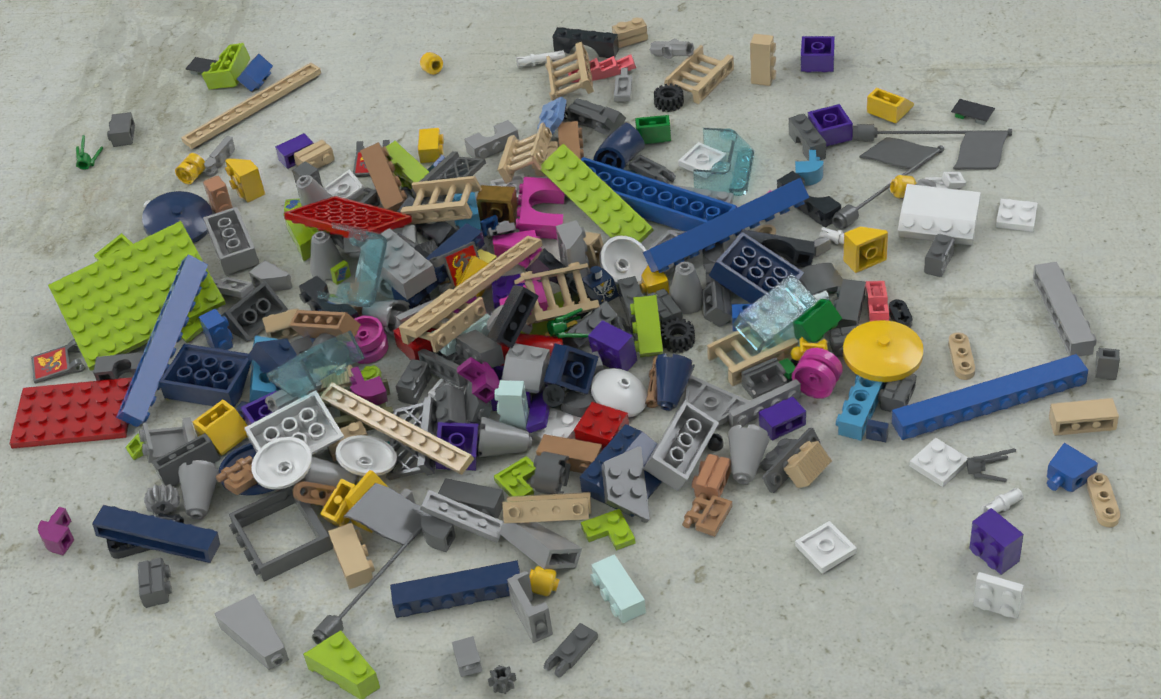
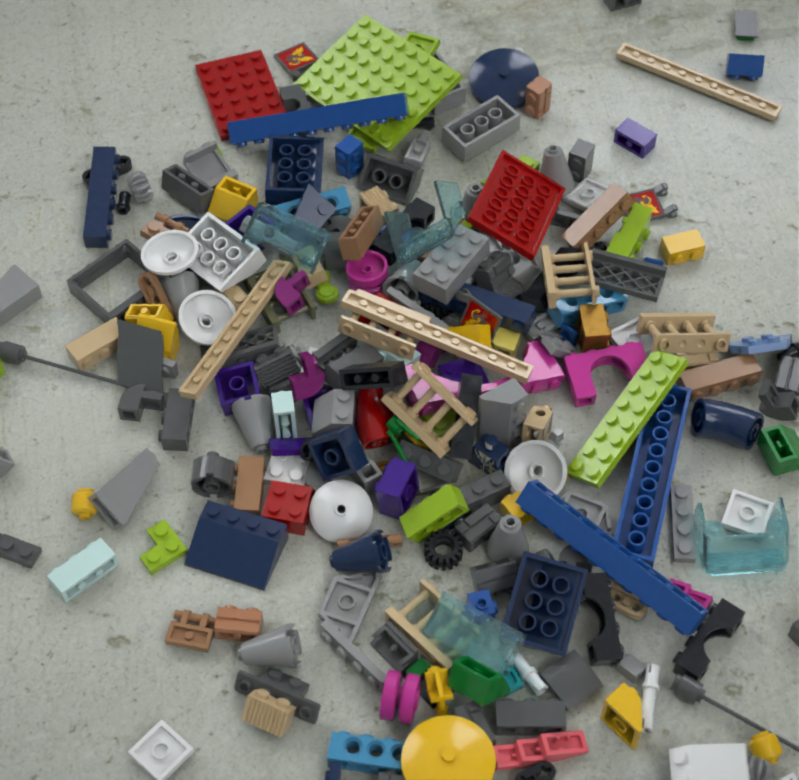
camera: 70 degrees right, 10 degrees up
(56, 533) = (96, 128): magenta brick -> none
(154, 582) = (52, 213): dark grey brick -> none
(190, 168) = (579, 64): yellow wheel -> none
(197, 486) = (158, 201): light grey cone -> none
(219, 156) = (606, 80): light grey hinge -> none
(227, 68) = (746, 41): lime wedge -> none
(245, 178) = (568, 110): yellow slope -> none
(275, 277) = (442, 170): light grey slope -> none
(315, 154) = (630, 155): tan brick -> none
(413, 382) = (319, 329): dark grey brick -> none
(452, 589) = (68, 437): dark blue brick -> none
(462, 516) = (147, 413): light grey plate -> none
(483, 147) = (694, 293): light grey arch -> none
(514, 478) = (209, 443): lime plate -> none
(534, 619) = (42, 494): light grey panel -> none
(547, 507) = (178, 477): tan fence -> none
(626, 483) = (208, 544): wing -> none
(651, 169) = (711, 465): dark grey hinge -> none
(681, 445) = (267, 583): light grey brick -> none
(716, 442) = (299, 621): black hinge -> none
(782, 418) = (336, 676): dark purple brick -> none
(810, 170) = (760, 636): dark azure brick -> none

